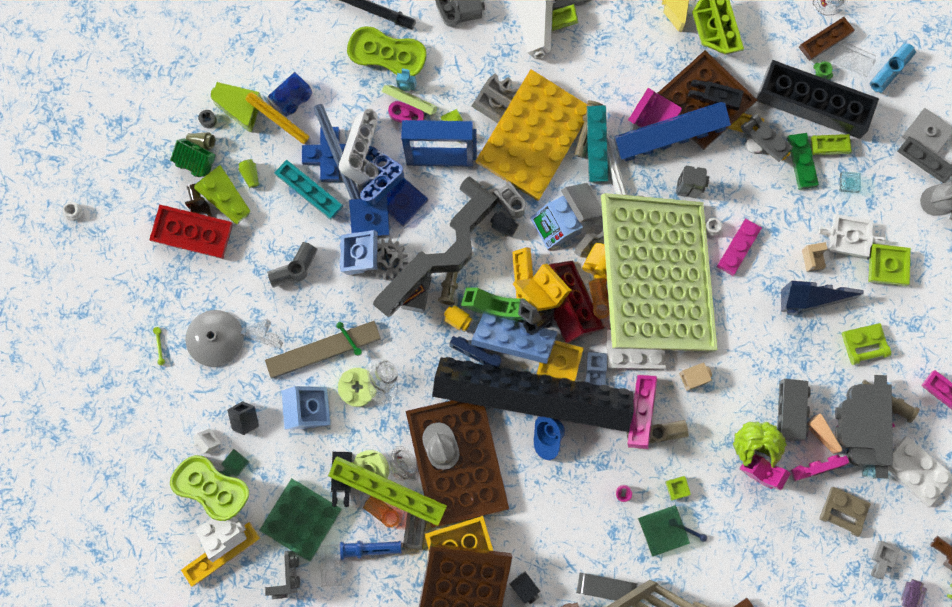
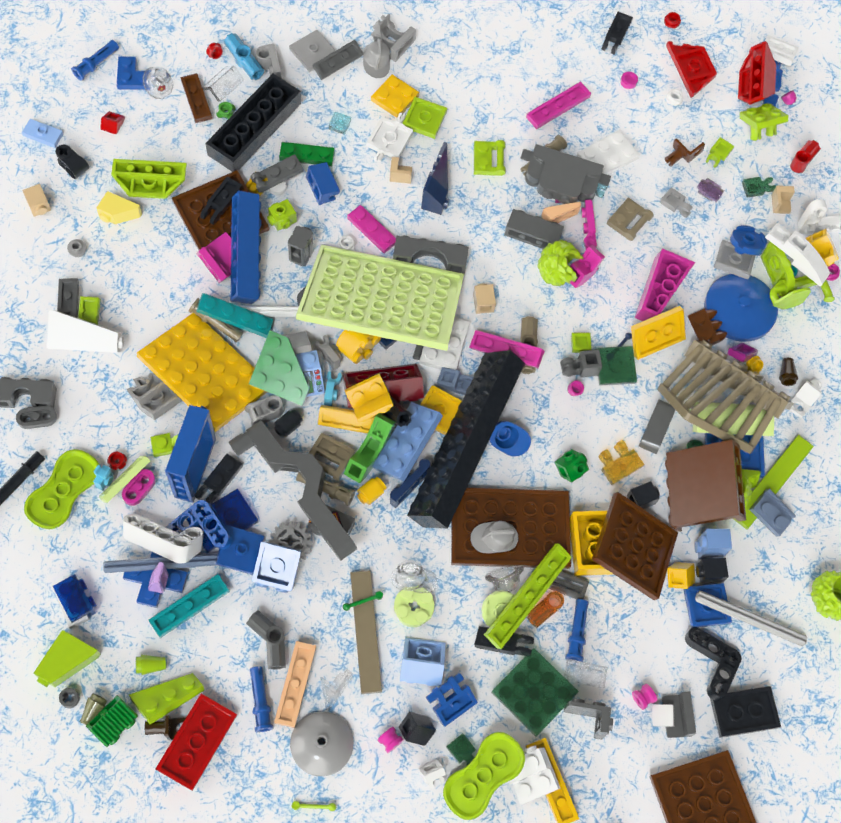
camera: 85 degrees left, 10 degrees down
(227, 396) = (390, 739): none -> dark pink wheel
(231, 277) = (261, 708): none -> blue pin
(259, 300) = (295, 684): none -> light nougat plate
(271, 446) = (455, 704): none -> blue plate
(278, 118) = (98, 617): yellow axle -> none
(320, 154) = (158, 578): none -> lavender slope
(426, 84) = (117, 456): none -> red plate
(434, 180) = (219, 478): none -> black hinge
(488, 272) = (333, 451): none -> dark tan plate
(528, 312) = (392, 413): dark grey slope -> none
(537, 507) = (572, 465): none -> green brick
(548, 253) = (331, 393): none -> medium azure plate
(549, 198) = (280, 370): none -> plate
(553, 560) = (622, 467): none -> clear yellow plate
(599, 296) = (389, 355): clear orange piece -> none
(652, 498) = (586, 365): none -> dark grey brick
(712, 567) = (658, 332): none -> yellow plate
(721, 155) = (281, 215): none -> lime brick
(725, 287) = (451, 255): none -> dark grey arch
(773, 184) = (322, 183): none -> blue hinge
(777, 562) = (663, 281): none -> dark pink wedge
(831, 144) = (299, 126): lime plate -> none
(889, 38) = (214, 50): none -> red plate
(896, 95) = (268, 59): none -> light grey plate
(905, 228) = (394, 96): none -> yellow plate

